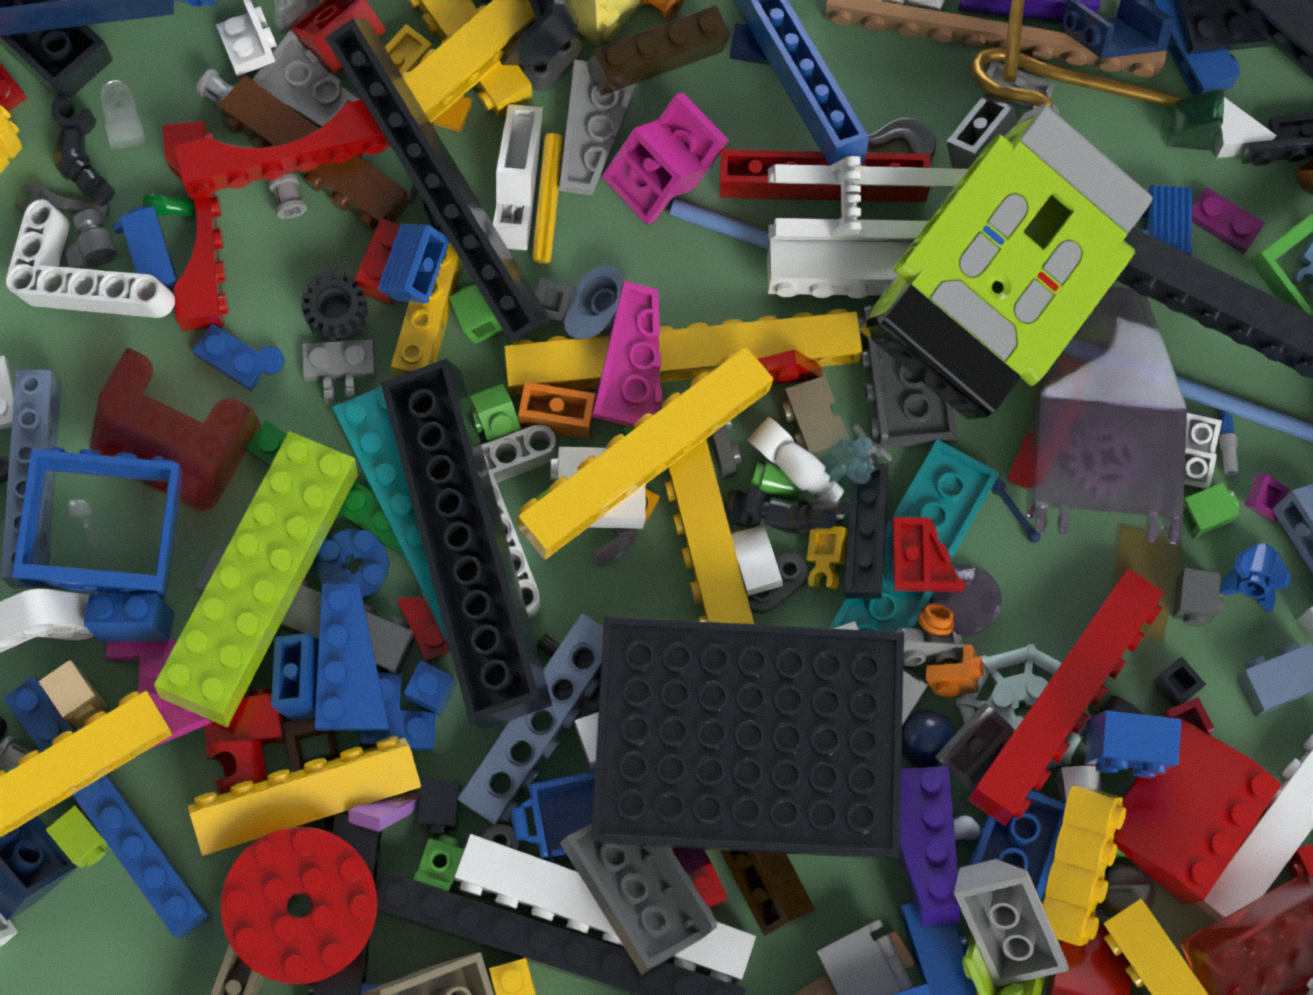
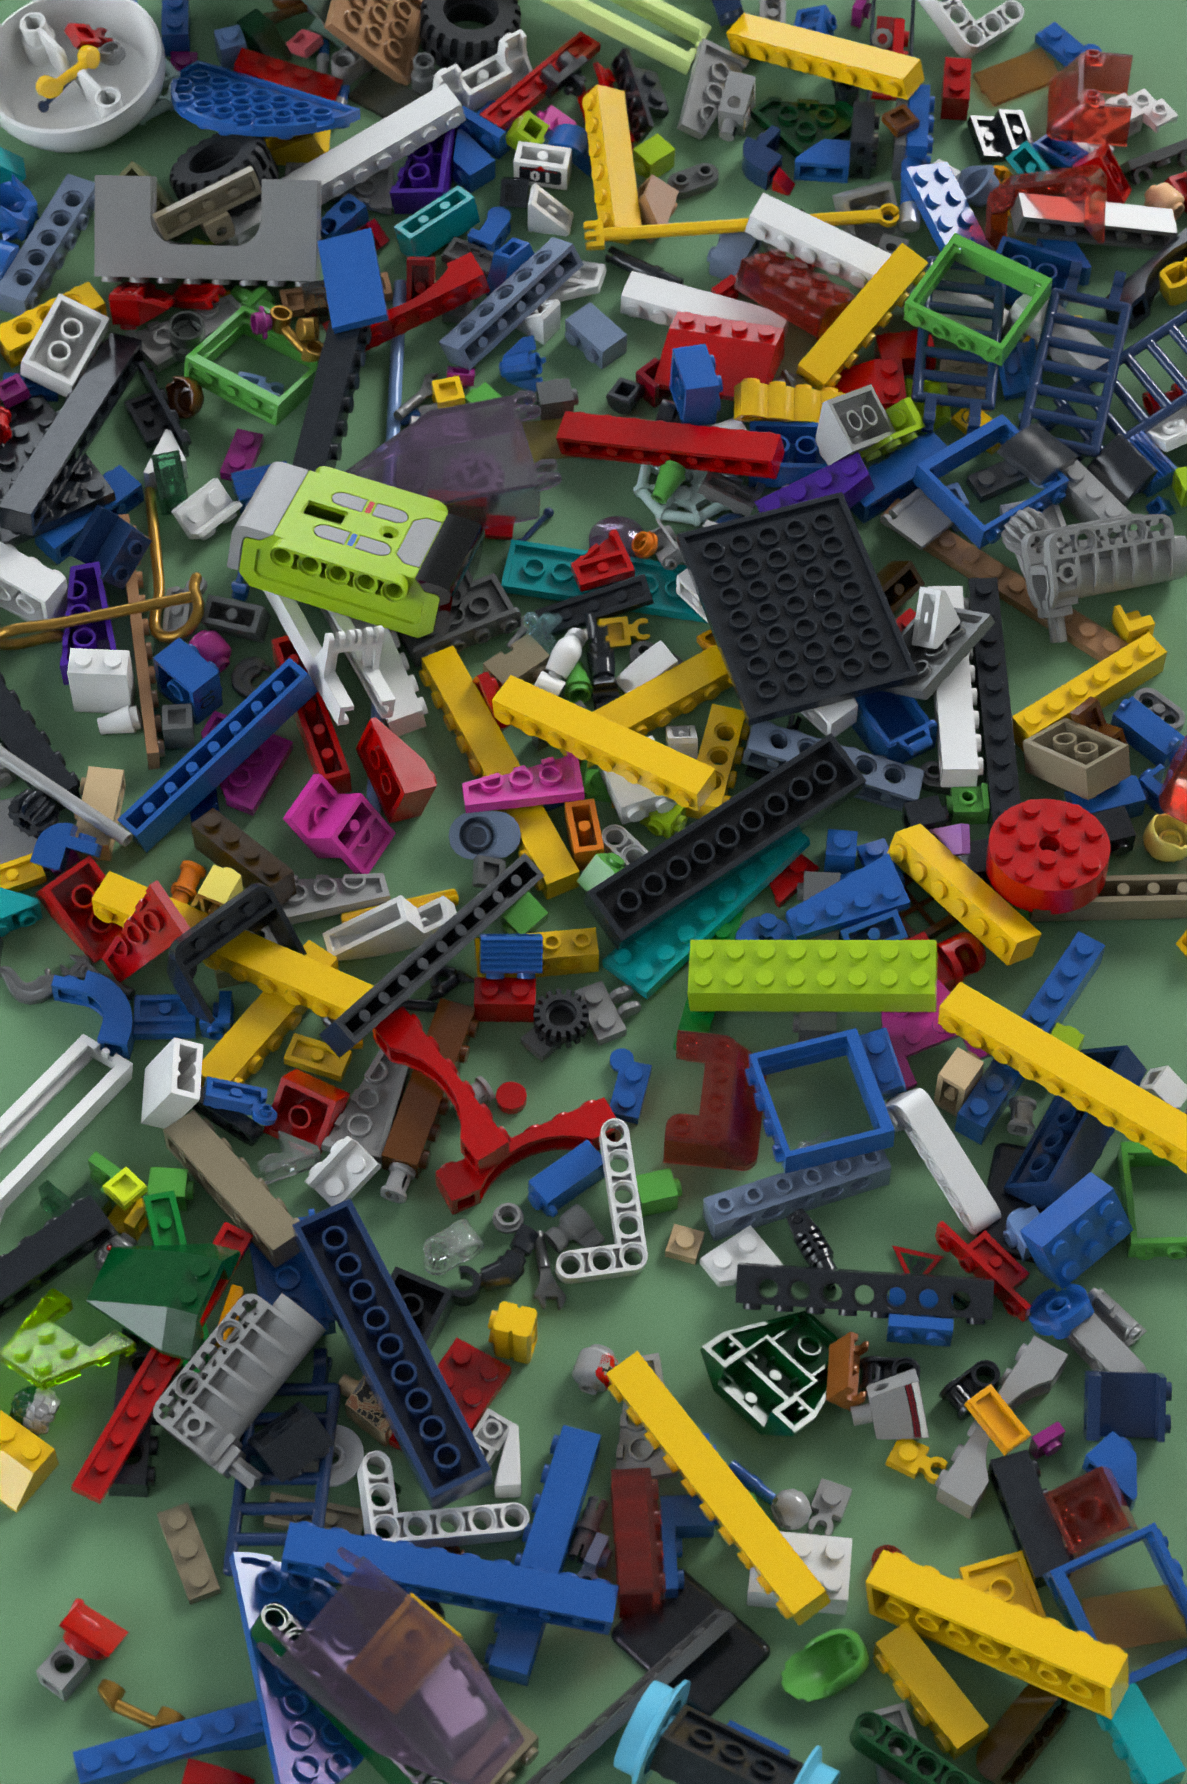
camera: 110 degrees left, 15 degrees down
(31, 349) = (684, 1244): none -> tan plate
(95, 337) = (658, 1192): none -> bright green brick
(133, 177) = (507, 1210): none -> light grey plate
(169, 205) = (519, 1184): green arm -> none
(274, 236) = (511, 1097): none -> red tile
(595, 578) = (721, 724): none -> yellow brick
(650, 567) = (682, 739): none -> white slope
(669, 897) = (934, 618): none -> white slope
(696, 231) = (395, 772): none -> red slope
(764, 97) = (253, 778): none -> magenta plate
(857, 36) = (178, 726): none -> dark grey brick
(911, 59) = (188, 678): none -> blue brick
(950, 100) = (212, 648): none -> dark pink head
(959, 678) = (680, 512): orange bracket -> none
(1020, 679) = (669, 478): none -> bright green cone
(1150, 152) = (206, 510): none -> white bracket
(1236, 468) = (447, 392): none -> yellow panel
(1261, 458) = (424, 393): none -> dark grey piece

